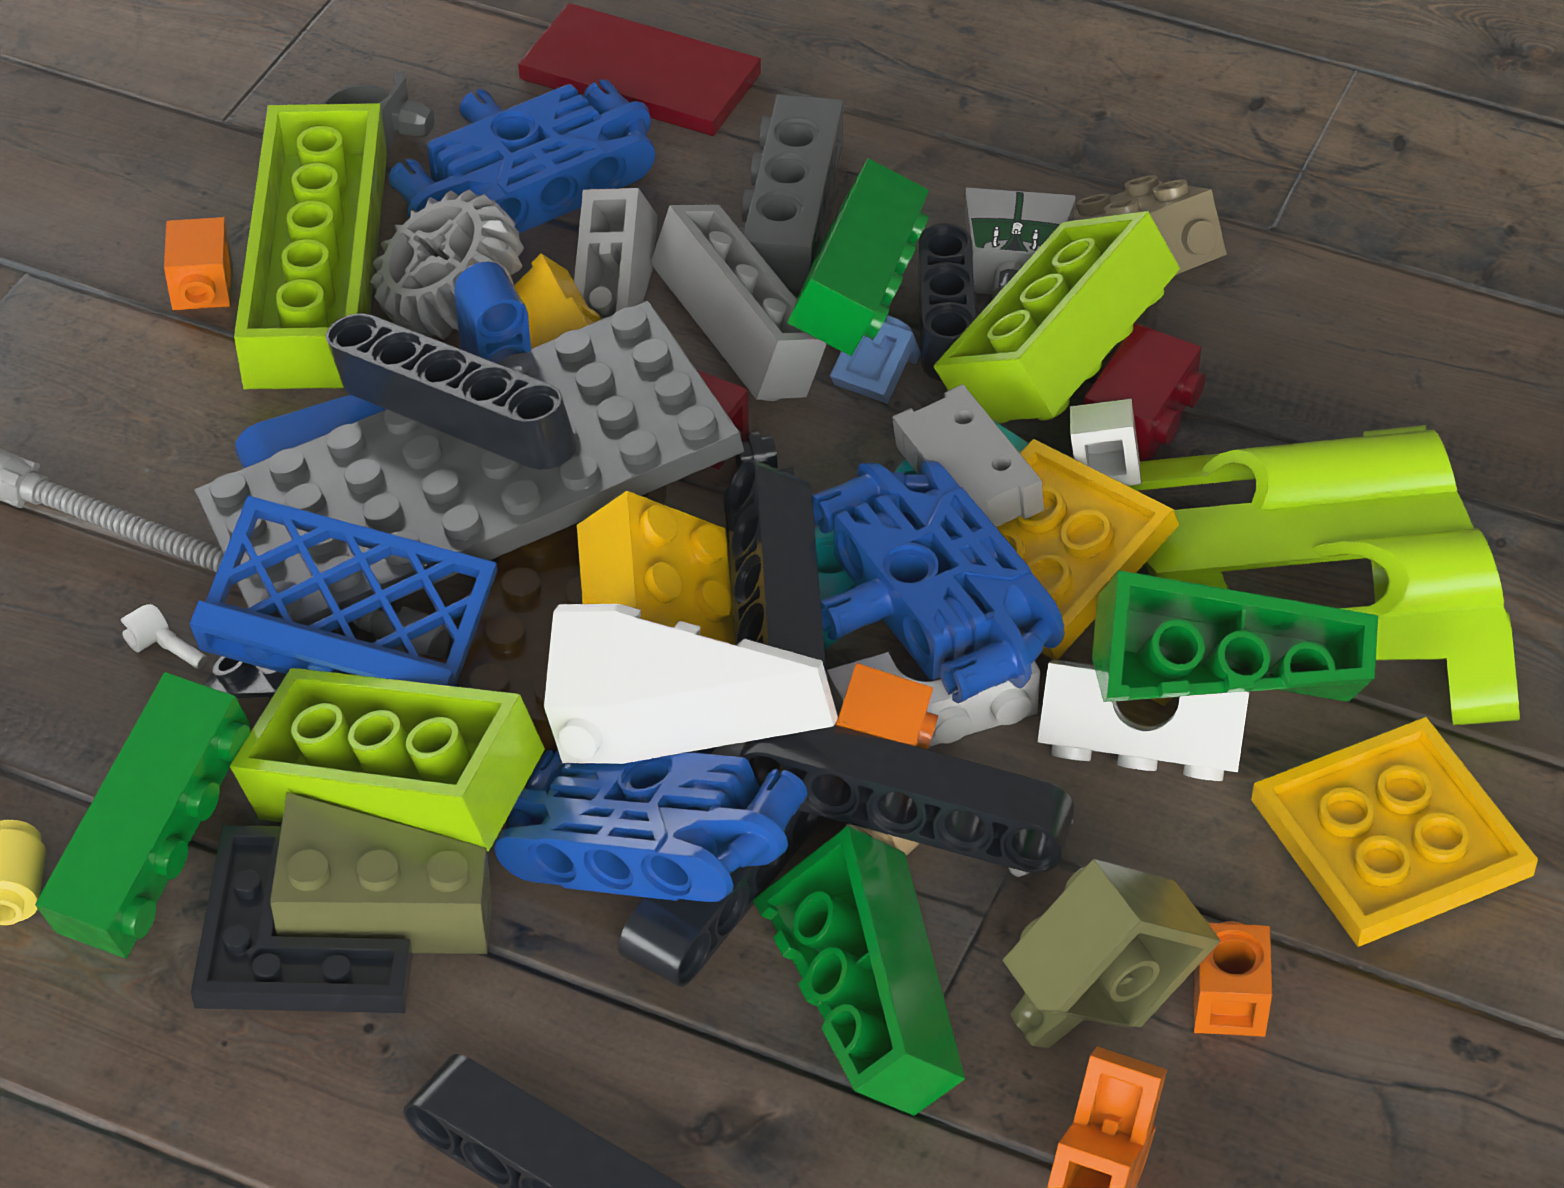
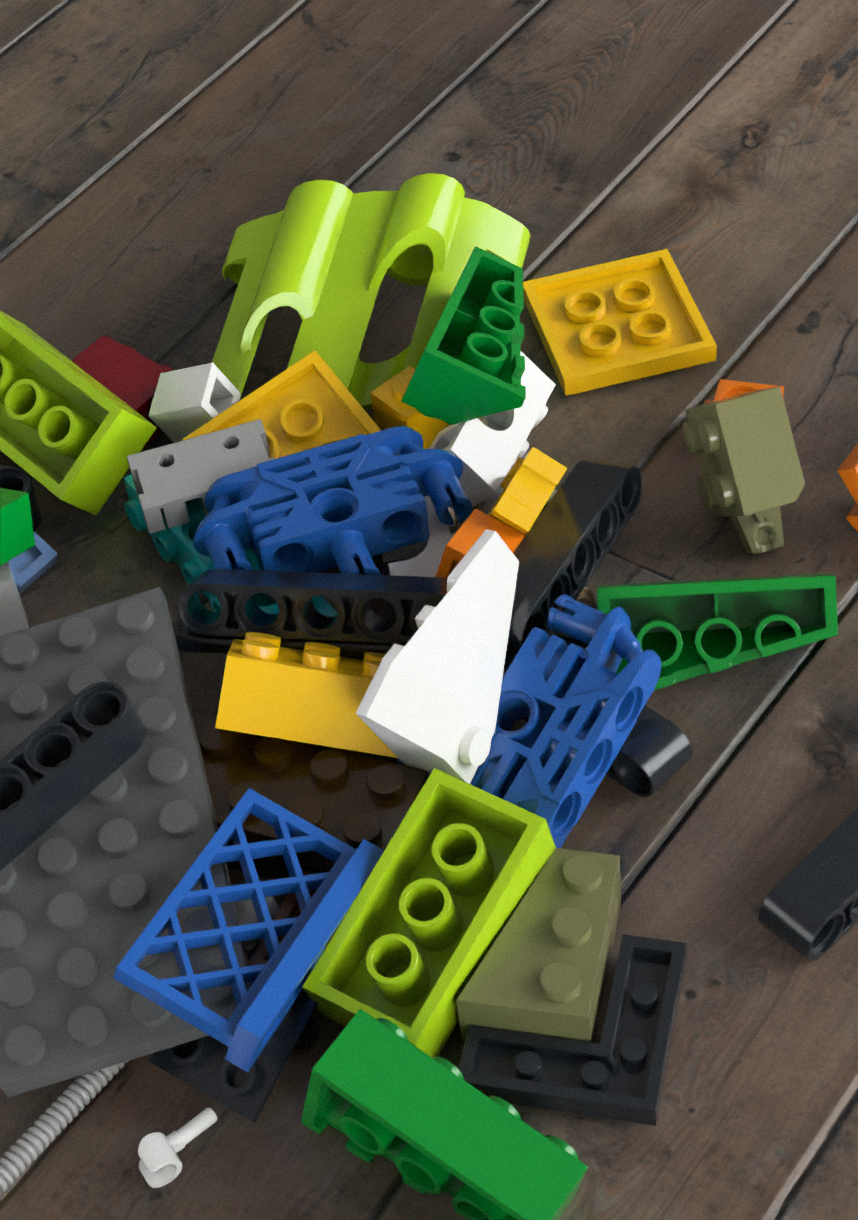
camera: 75 degrees left, 0 degrees up
(988, 735) = (527, 490): none -> yellow piece

